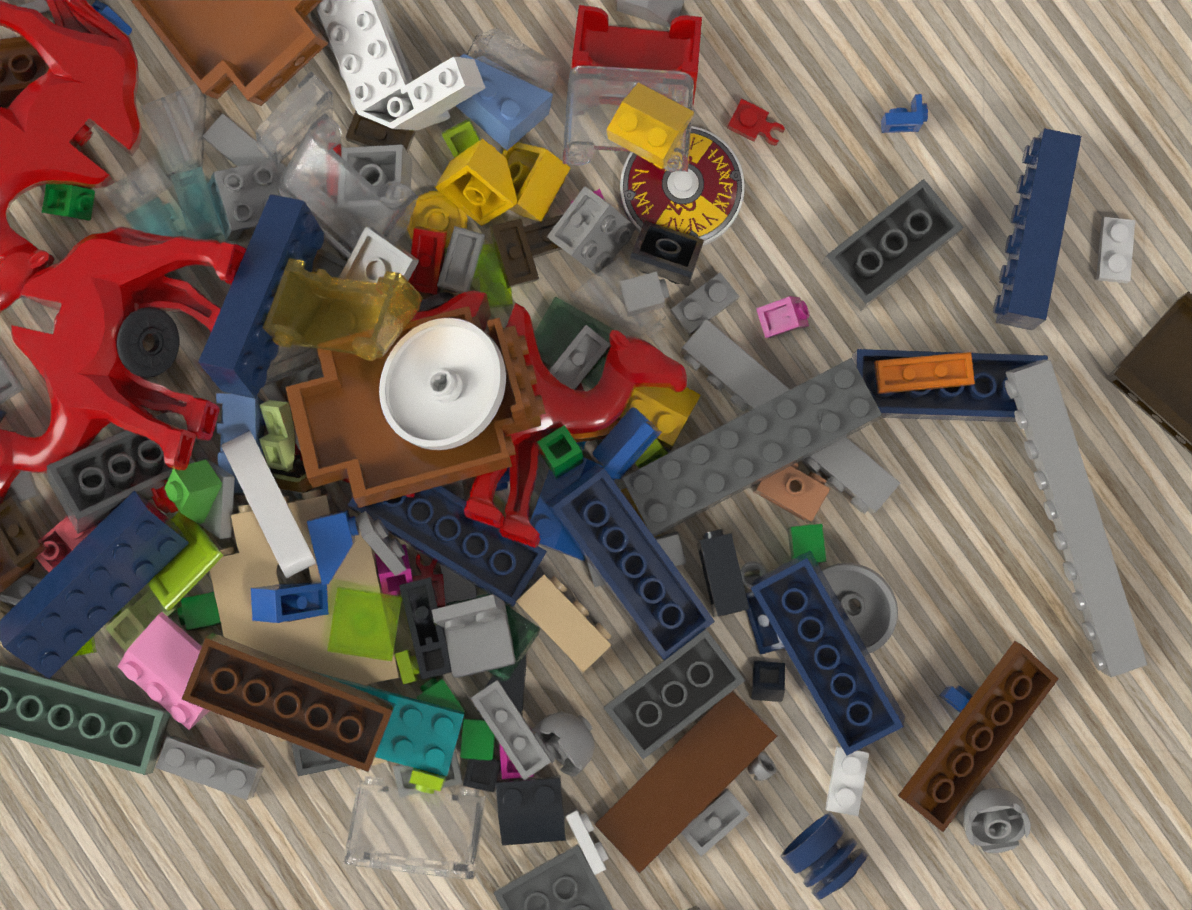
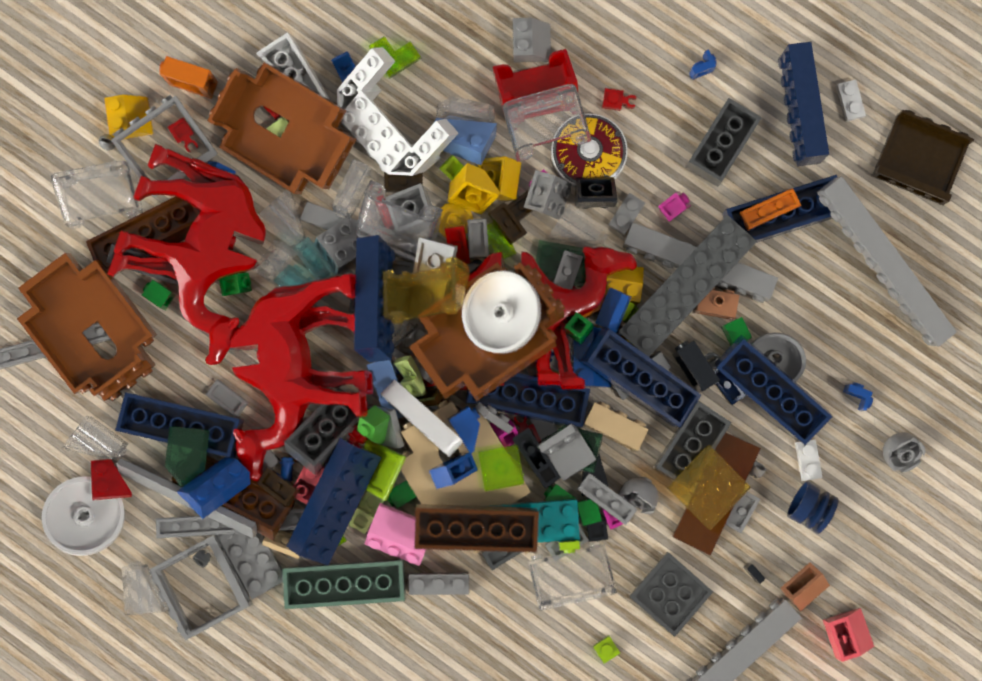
camera: 15 degrees left, 0 degrees up
(43, 509) = (287, 467): none -> blue pin
(131, 336) = (306, 349): black wheel -> none
(407, 666) = (533, 484): lime plate -> none
(530, 810) = (633, 541): black slope -> none
(593, 852) = (666, 541): white plate -> none
(643, 293) = (592, 220): light grey brick -> none
(649, 124) = (562, 121): yellow slope -> none
(673, 768) = (709, 487): none -> clear yellow plate
(768, 681) = (742, 419): black slope -> none
(978, 736) = (876, 407): reddish brown arch -> none

